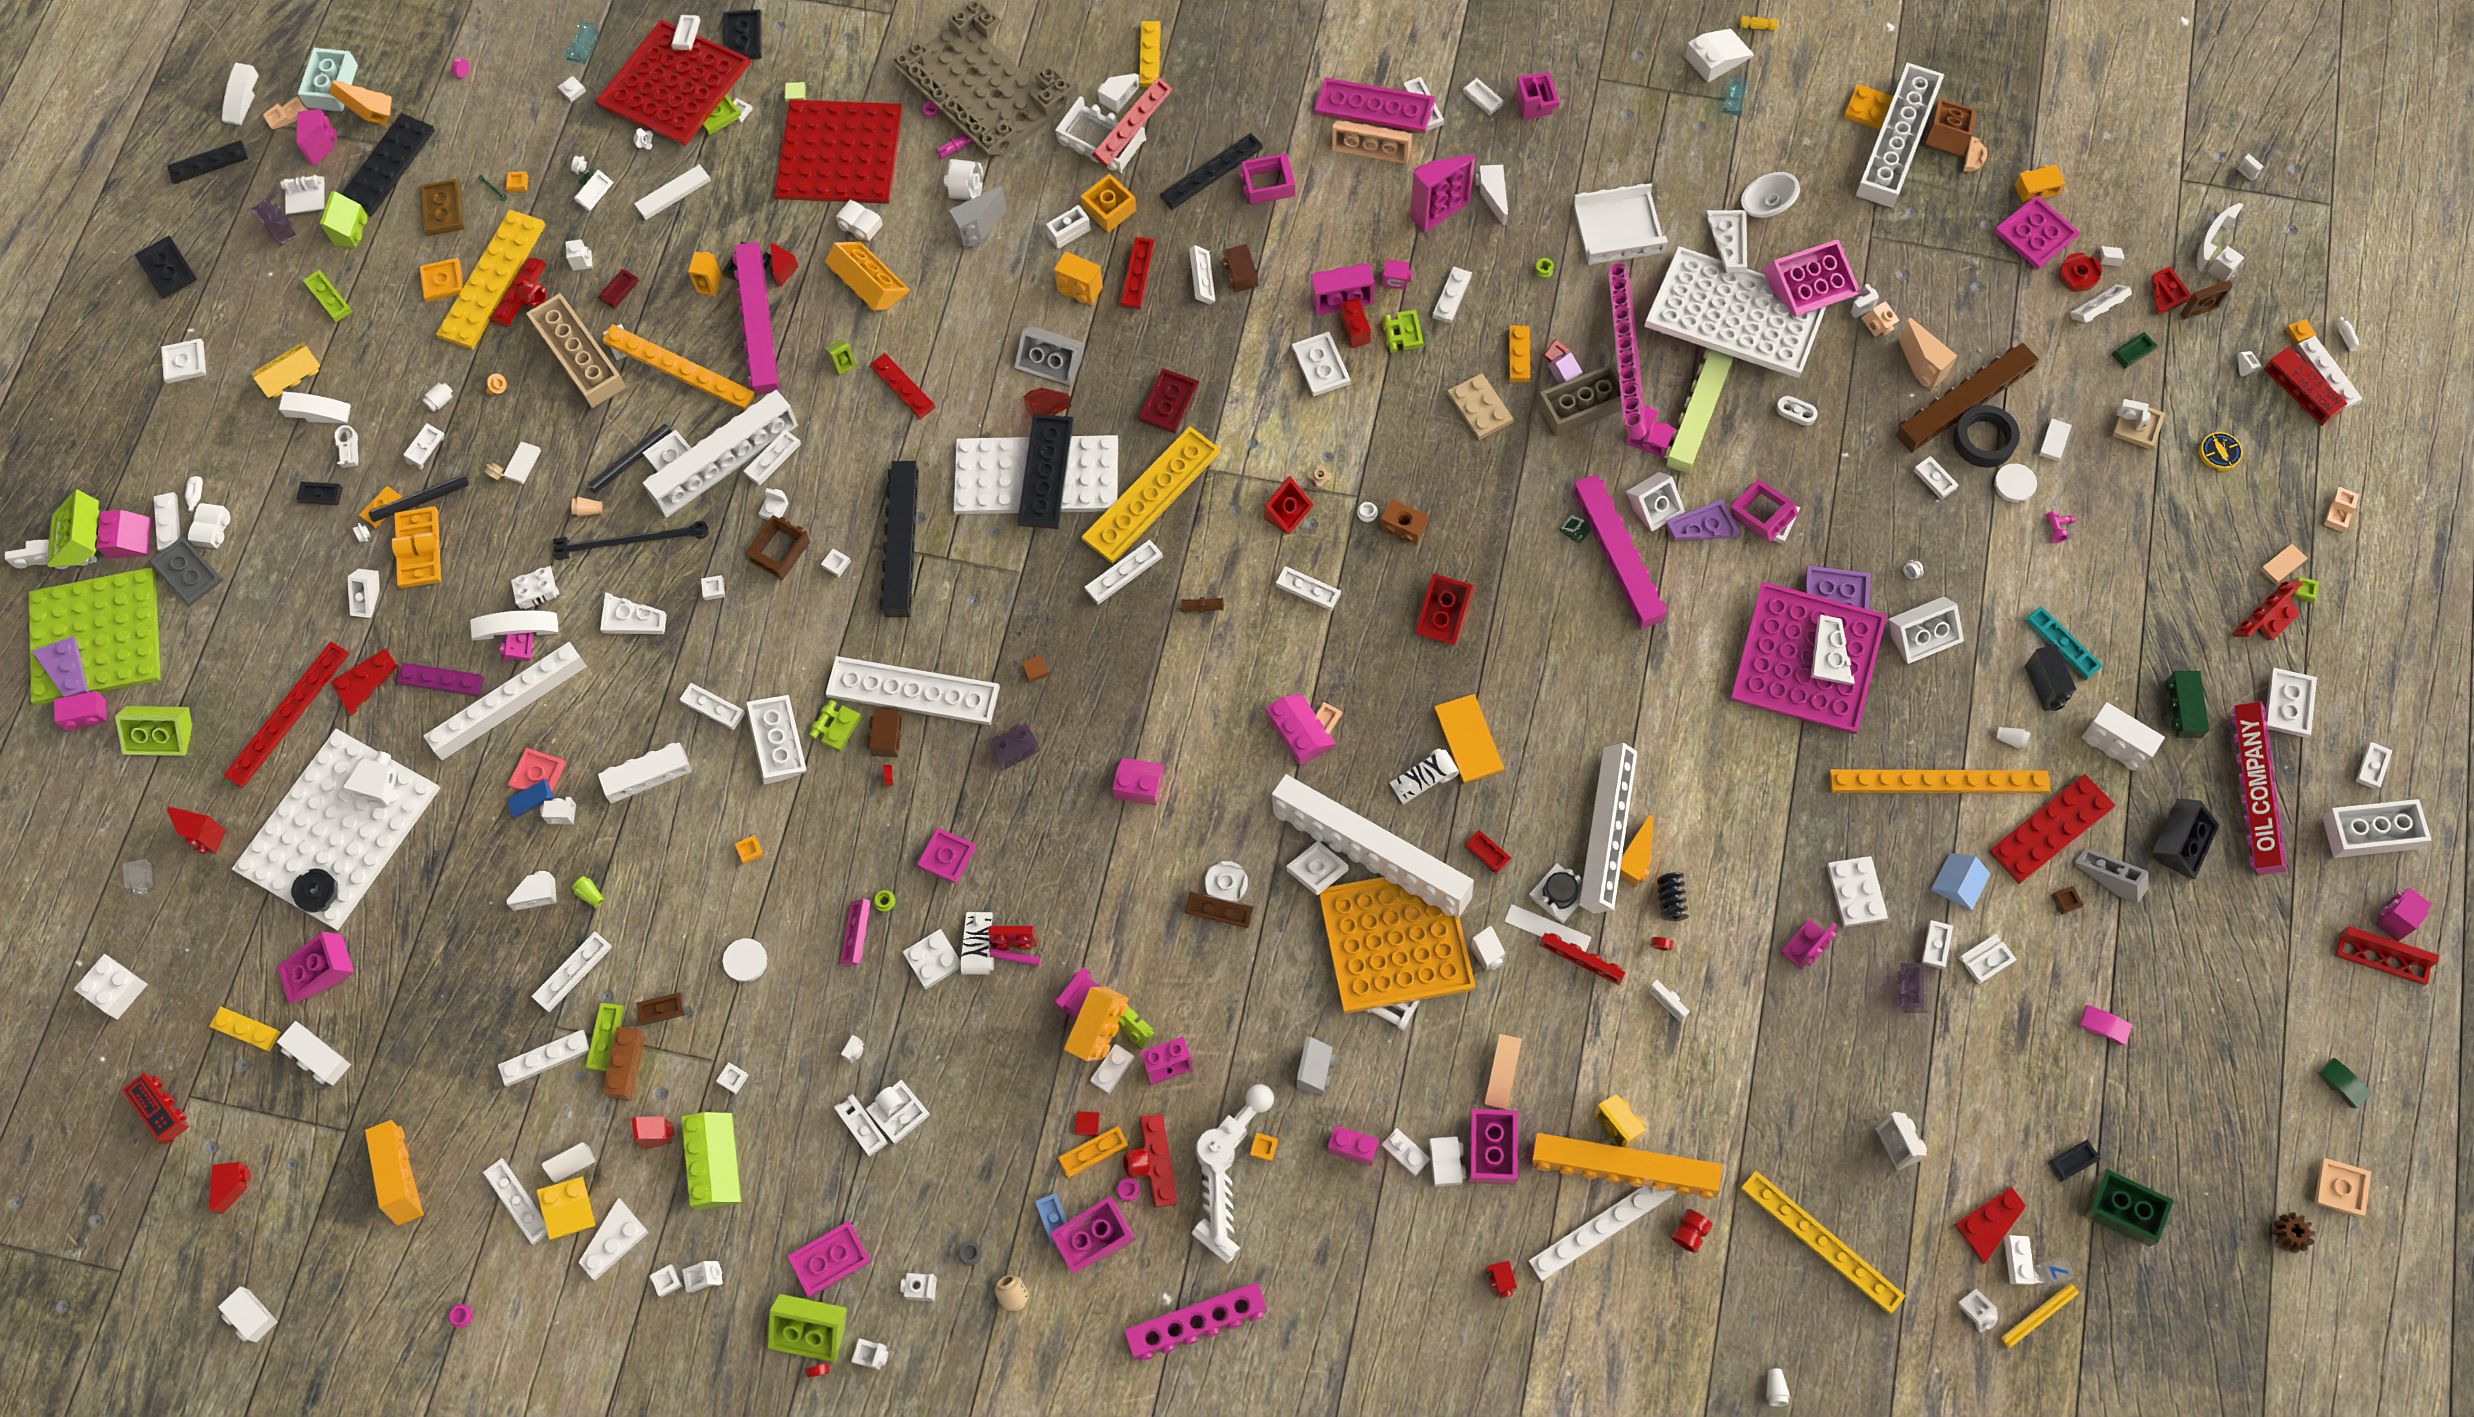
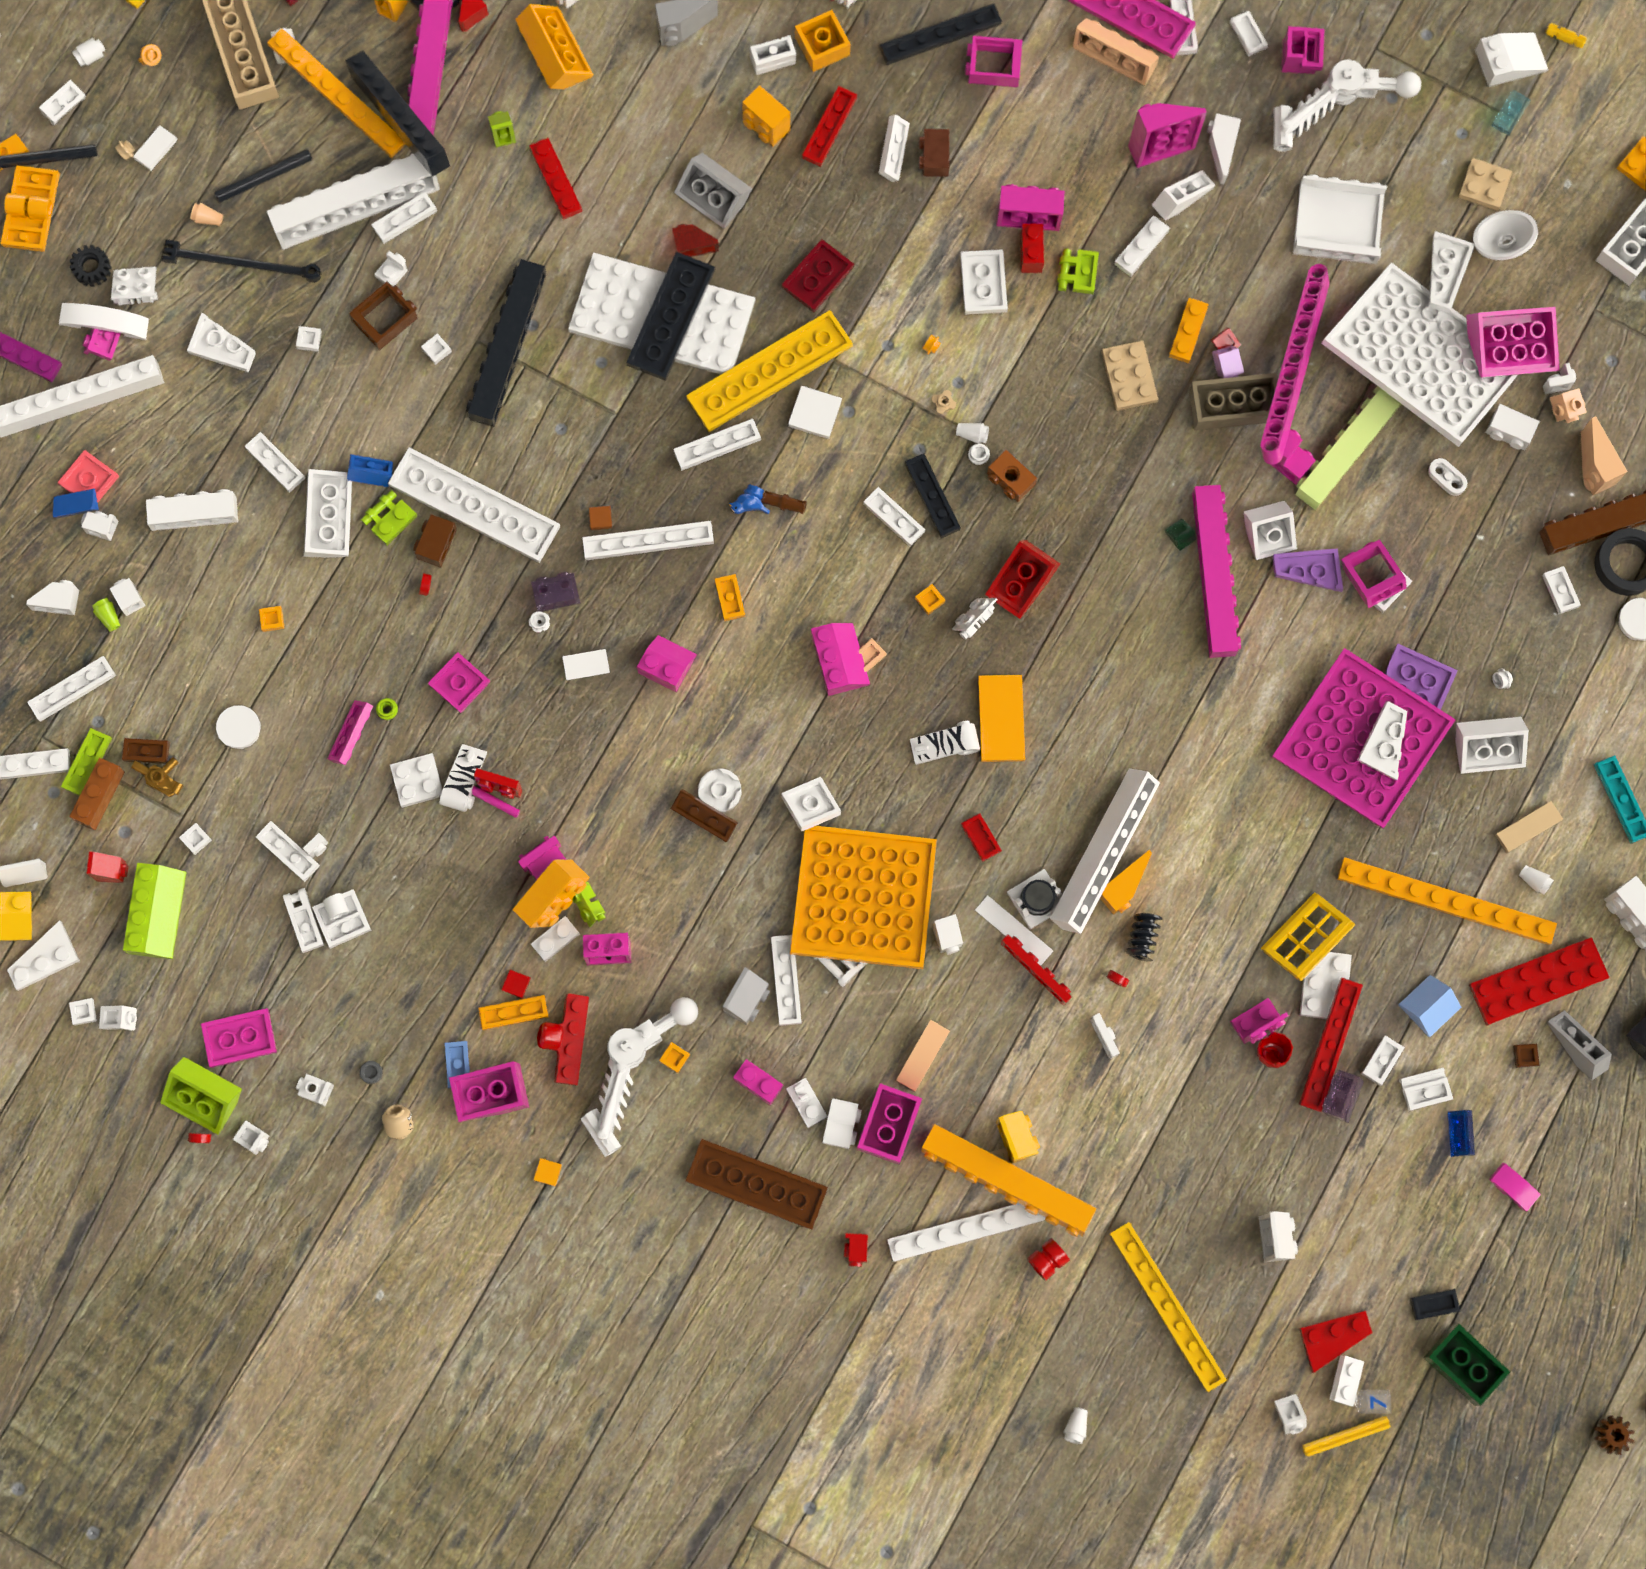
camera: 10 degrees right, 10 degrees up
(480, 574) = (85, 255): none -> black tyre
(603, 869) = (127, 596): none -> white brick
(666, 450) = (302, 180): white plate -> none
(680, 1031) = (158, 778): none -> pearl gold piece
(741, 366) = (397, 113): none -> black brick
(804, 688) = (369, 470): none -> blue slope
(826, 1063) = (287, 851): none -> white plate
(1006, 772) = (535, 618): none -> white plate
(1062, 803) = (586, 664): none -> white hinge
(1086, 675) = (648, 540): none -> white plate
(1128, 1189) = (535, 1058): dark pink tile -> none
(1170, 612) = (749, 501): none -> blue animal
(1174, 1298) = (548, 1172): none -> light orange tile
(1179, 704) = (729, 597): none -> light orange plate
(1204, 518) = (815, 412): none -> white tile
(1249, 1294) = (502, 1196): dark pink brick -> none
(1287, 506) = (900, 425): red slope -> none
(1292, 430) = (932, 344): none -> light orange plate
(1337, 560) = (932, 495): none -> black plate
(1348, 1041) = (786, 981): none -> white plate
(1355, 494) = (973, 431): none -> white cone
(1366, 651) = (930, 599): none -> light orange plate
(1372, 846) = (868, 800): white brick -> none
(1384, 1246) = (756, 1184): none -> reddish brown plate
(1396, 274) = (1092, 207): dark pink brick -> none
(1415, 651) = (980, 610): none -> white hinge
(1472, 242) = (1182, 194): none -> white slope
(1544, 262) = (1250, 239): lime bush -> none
(1582, 114) = (1342, 87): none -> white piece
(1735, 160) = (1485, 184): none -> tan plate
(1834, 965) = (1275, 1050): none -> red hair
(1838, 352) = (1512, 427): none -> white brick
(1842, 860) = (1324, 947): none -> yellow piece
(1883, 944) = (1330, 1044): none -> red tile
(1988, 693) = (1529, 827): none -> tan tile
(2036, 989) = (1461, 1133): none -> clear blue plate
(2050, 677) = (1593, 832): black window -> none

